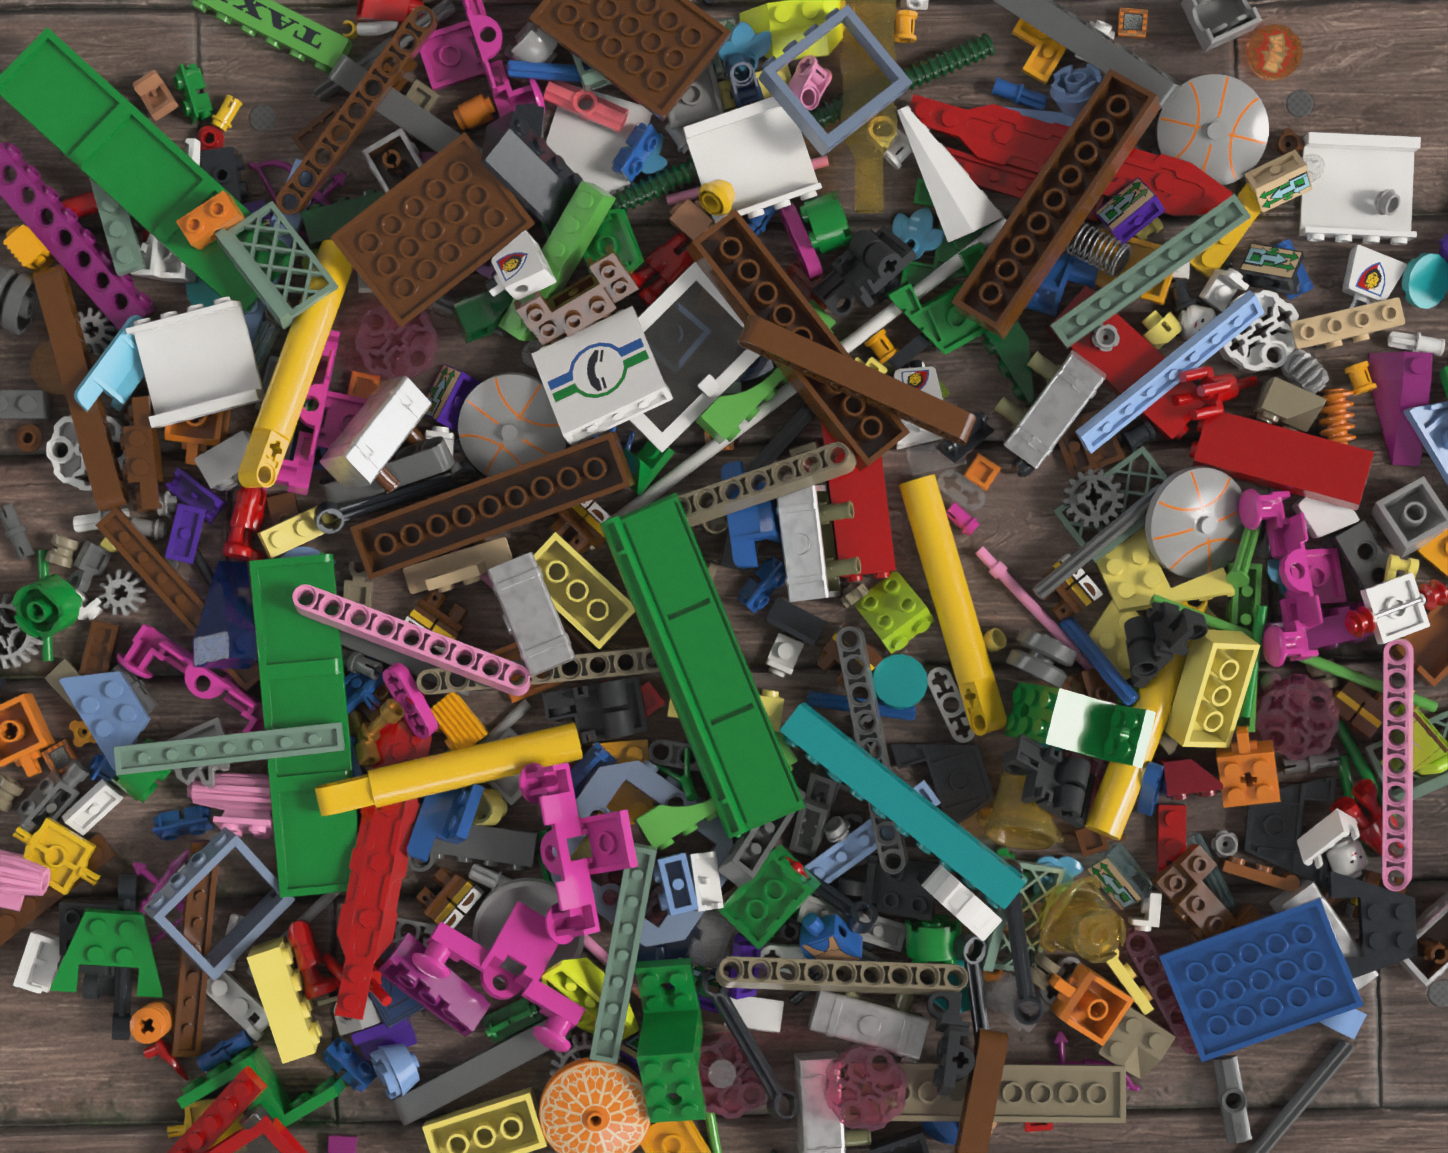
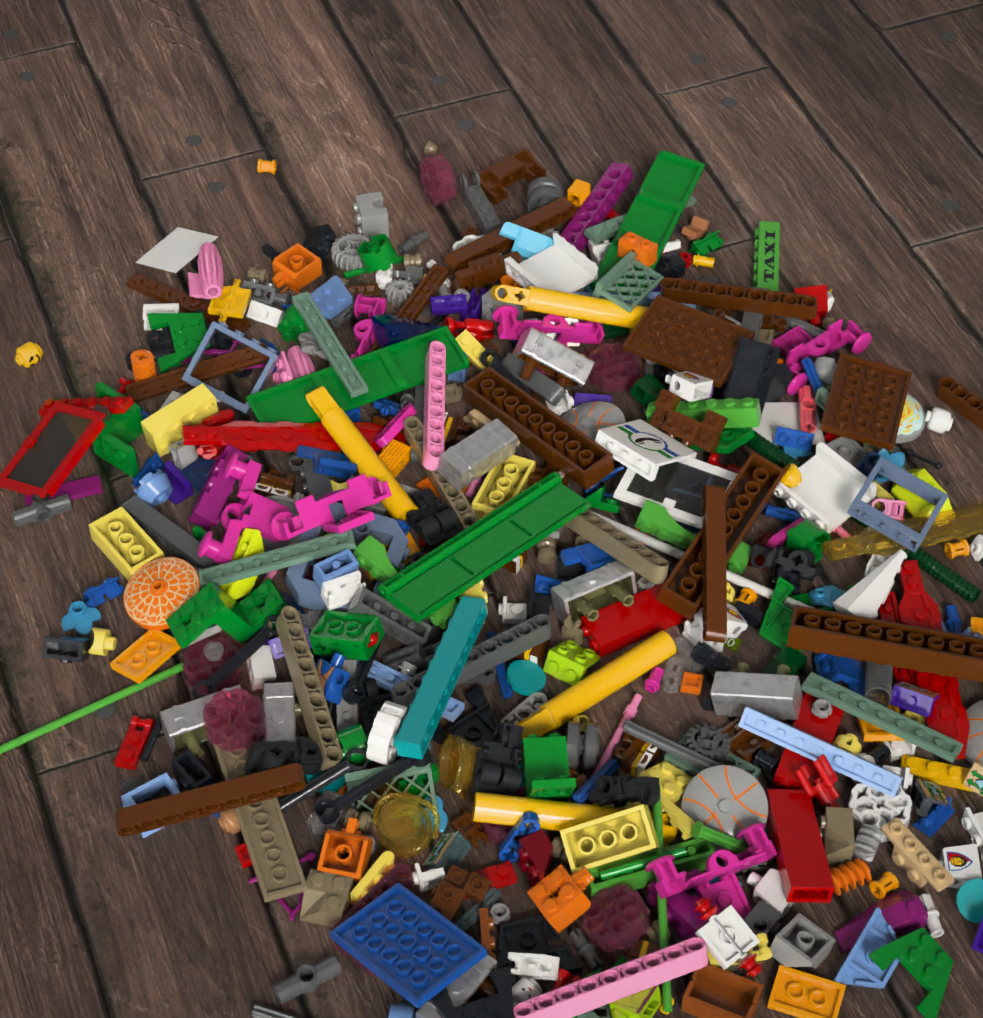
camera: 65 degrees right, 40 degrees down
(368, 733) = (368, 414): pearl gold bar -> none

